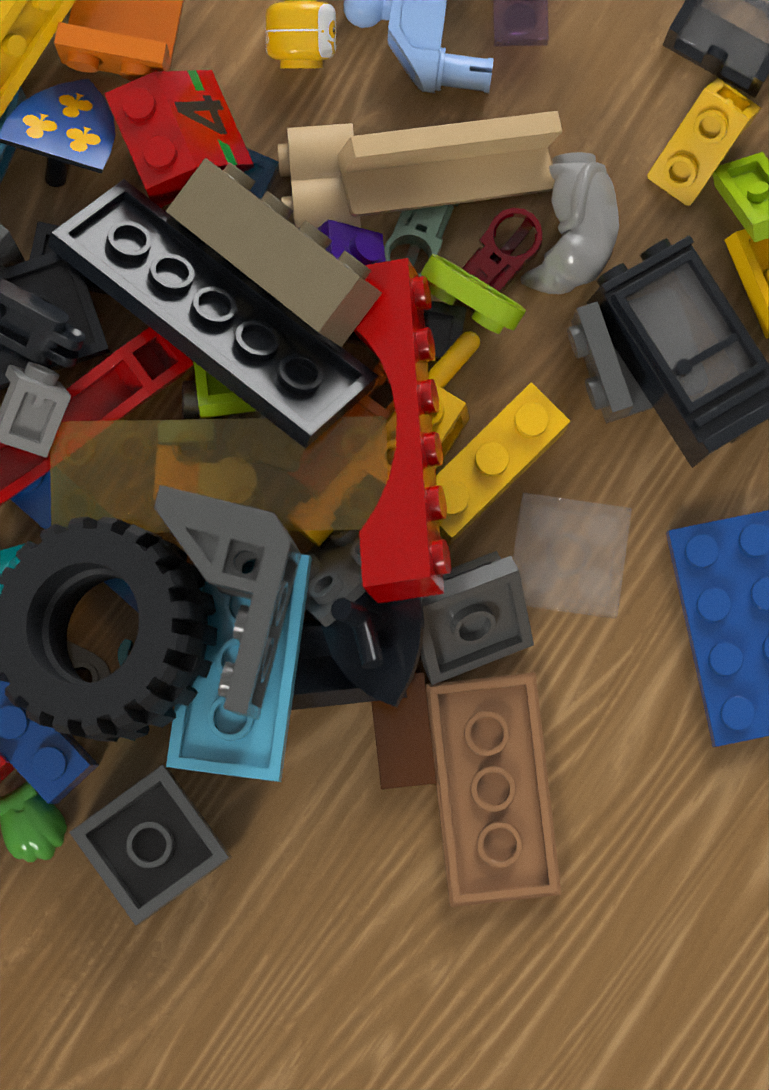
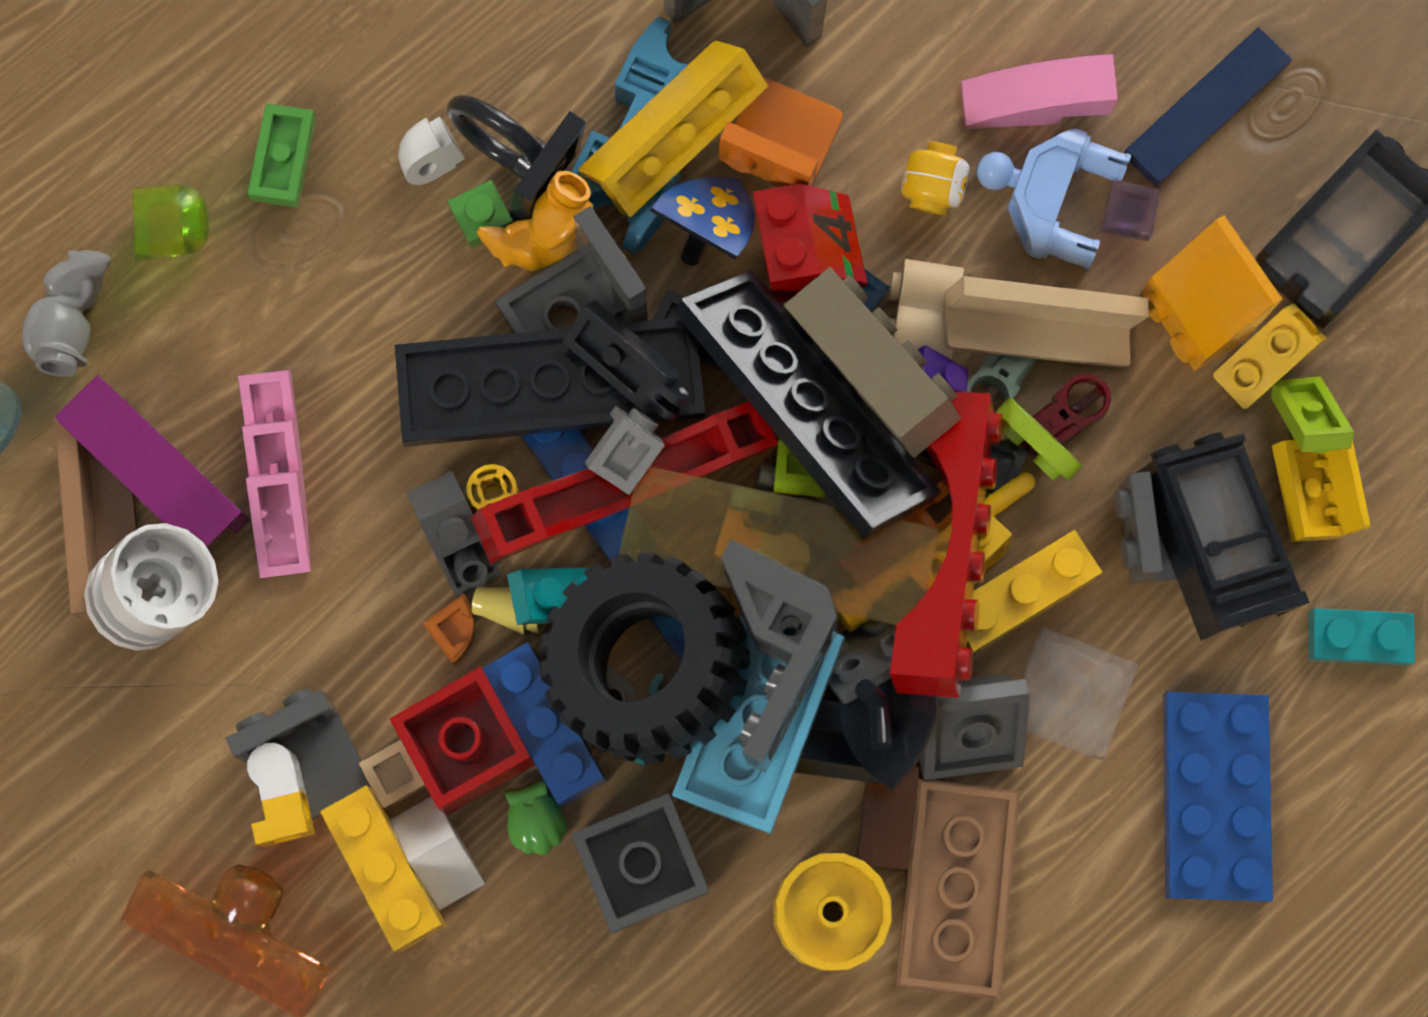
camera: 15 degrees right, 5 degrees down
(393, 831) = (861, 902): none -> yellow wheel
(588, 225) = (1152, 406): light grey animal -> none
(621, 95) = (1210, 295): none -> light orange slope

